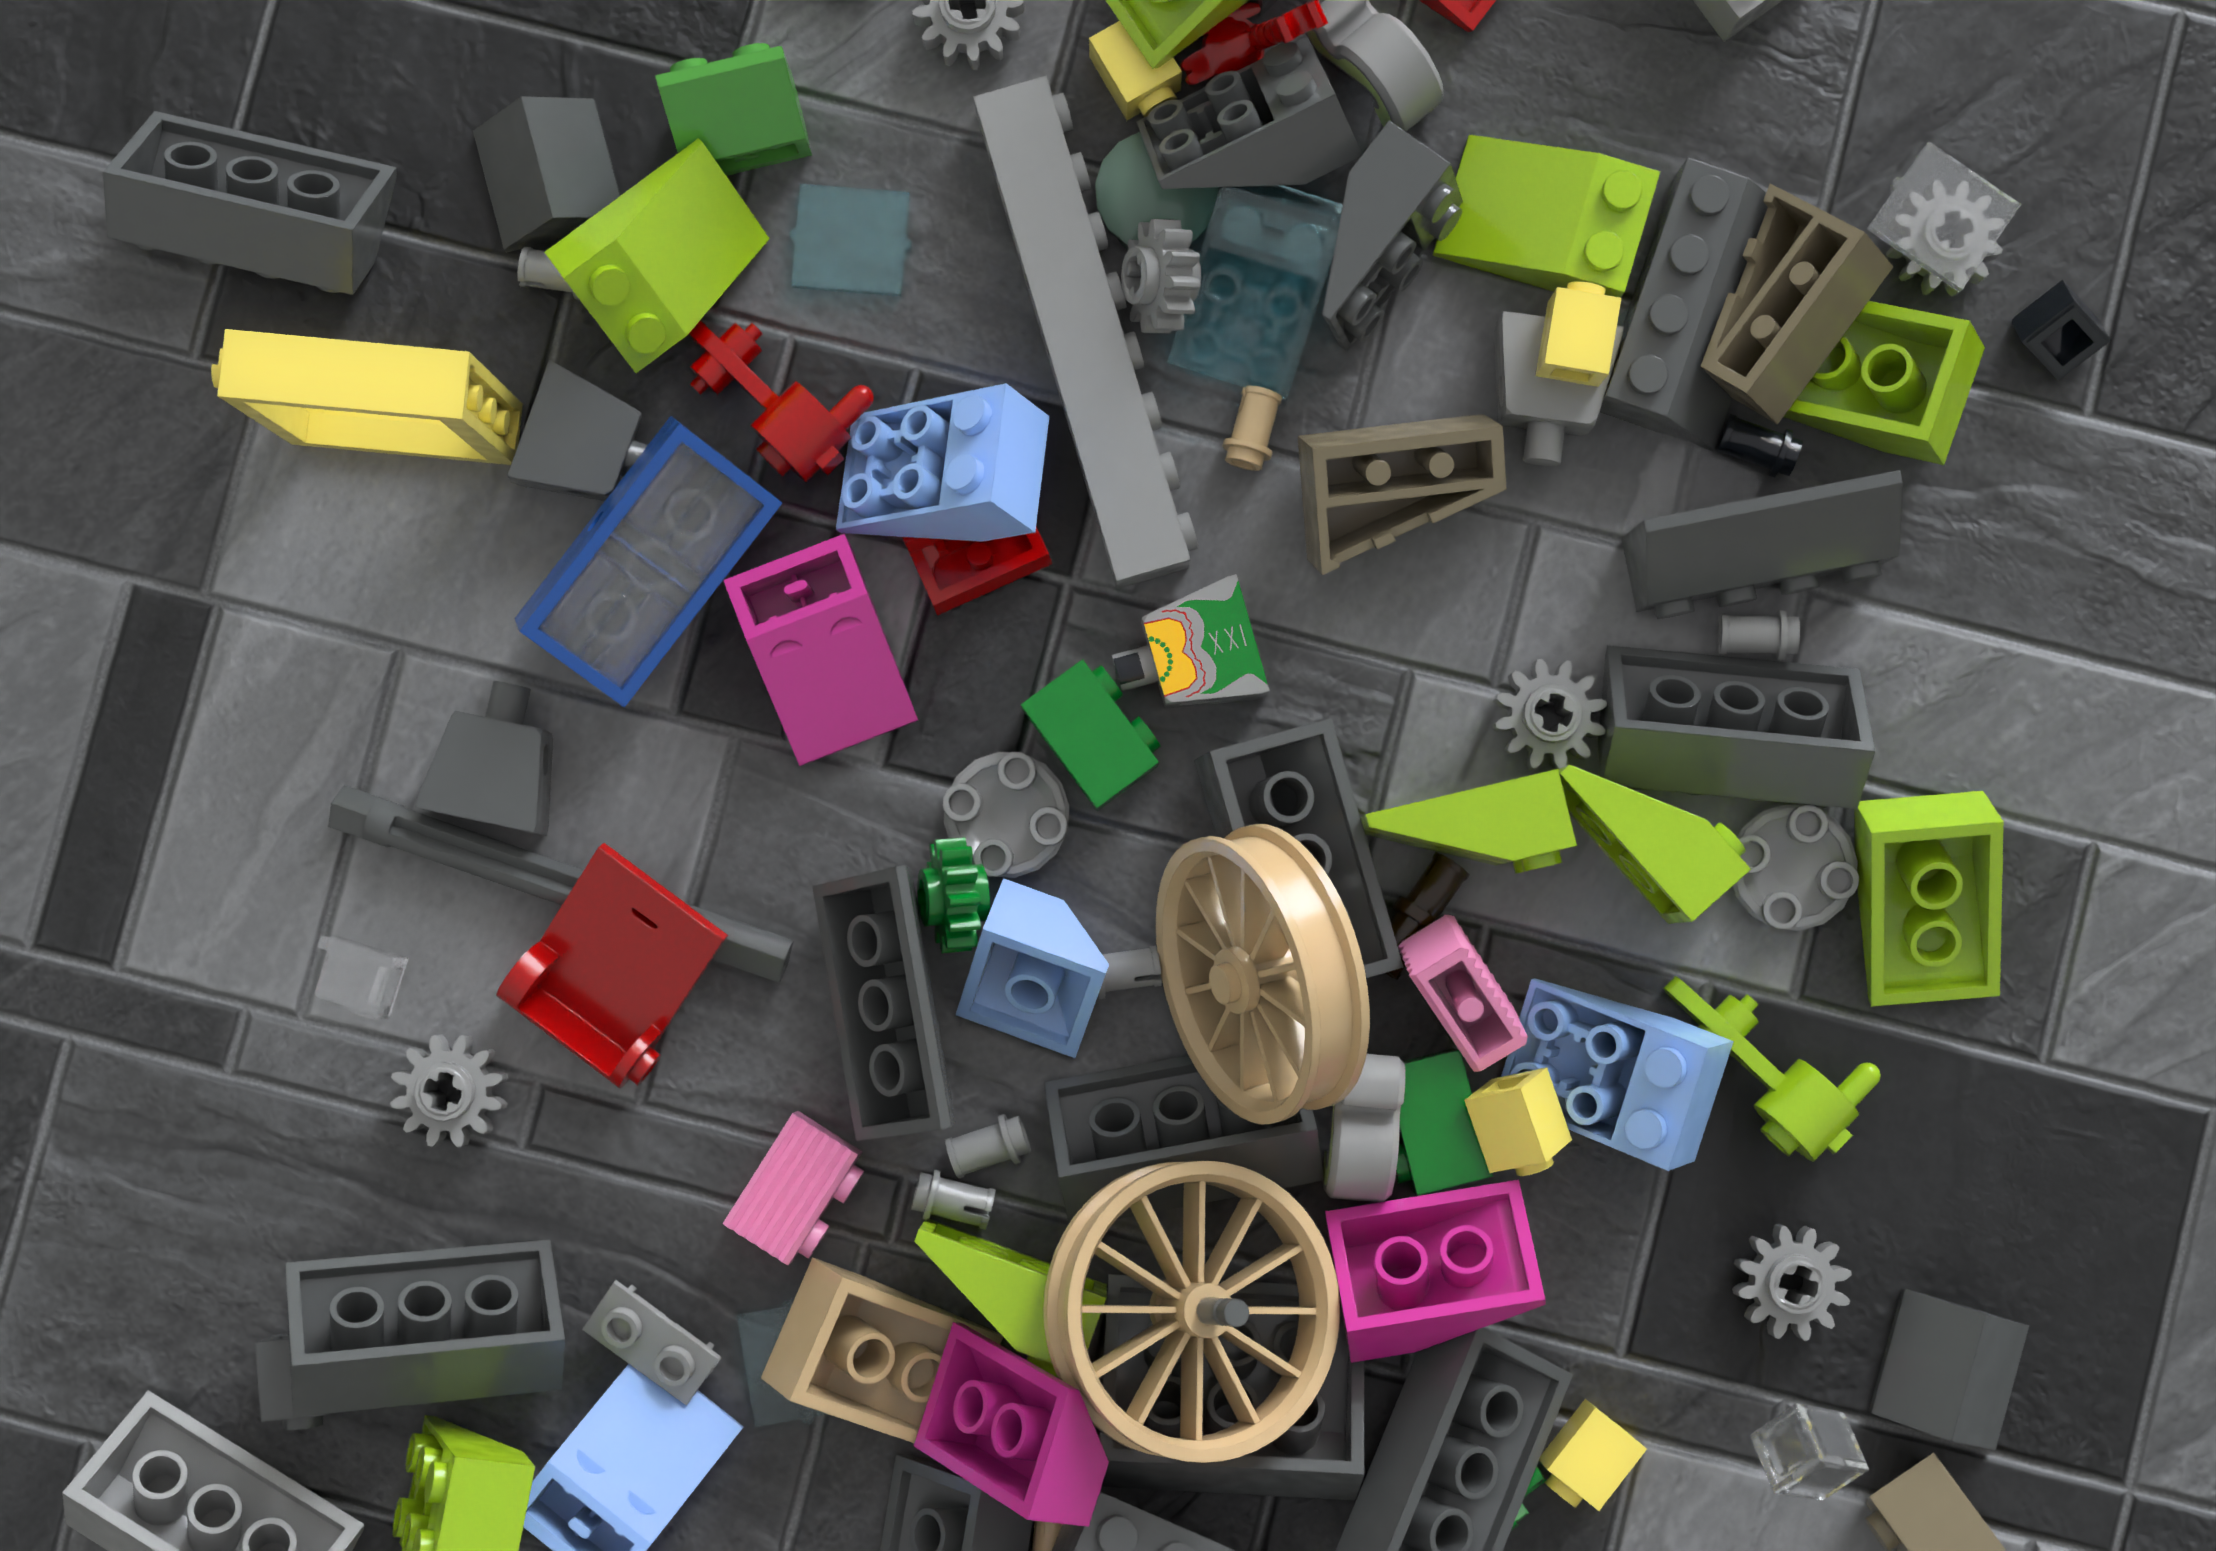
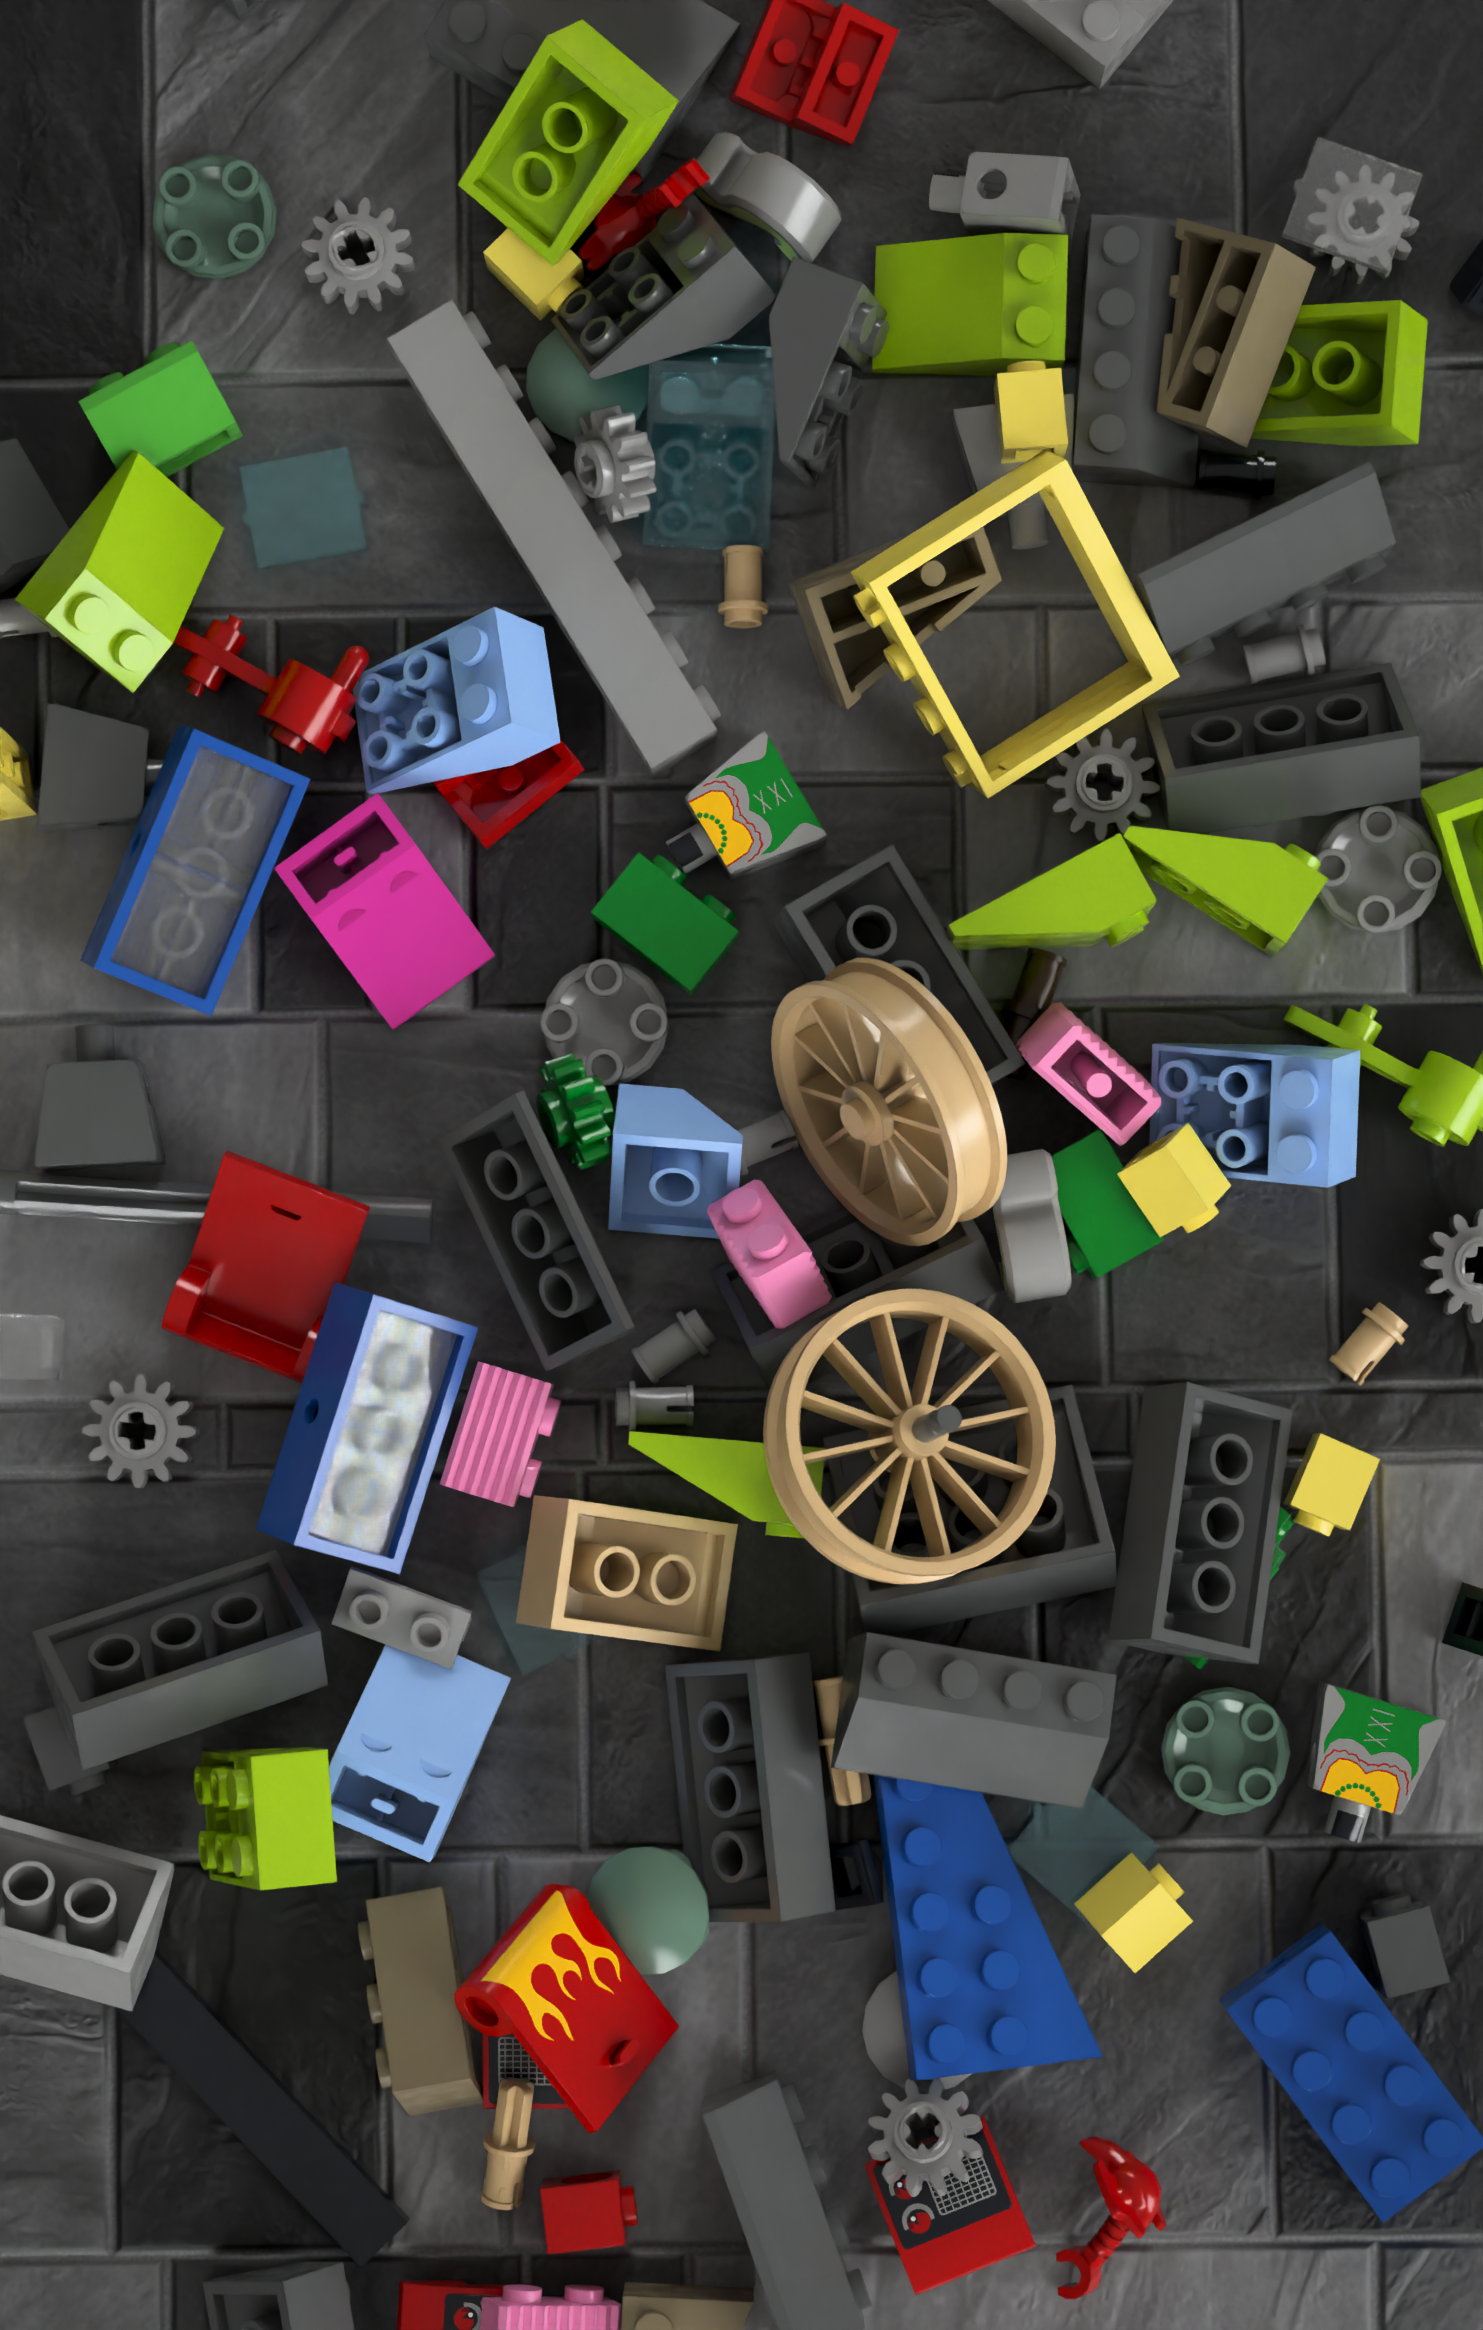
camera: 10 degrees left, 0 degrees up
(665, 1151) = (366, 1428): none -> brick
(1013, 1431) = (770, 1596): dark pink slope -> none
(1103, 1087) = (769, 1254): none -> bright pink brick
(1432, 1267) = (1127, 1341): dark pink slope -> none
(1598, 464) = (1144, 673): none -> light yellow window
(1613, 117) = (1010, 195): none -> light grey torso
(1664, 1327) = (1369, 1343): none -> tan pin

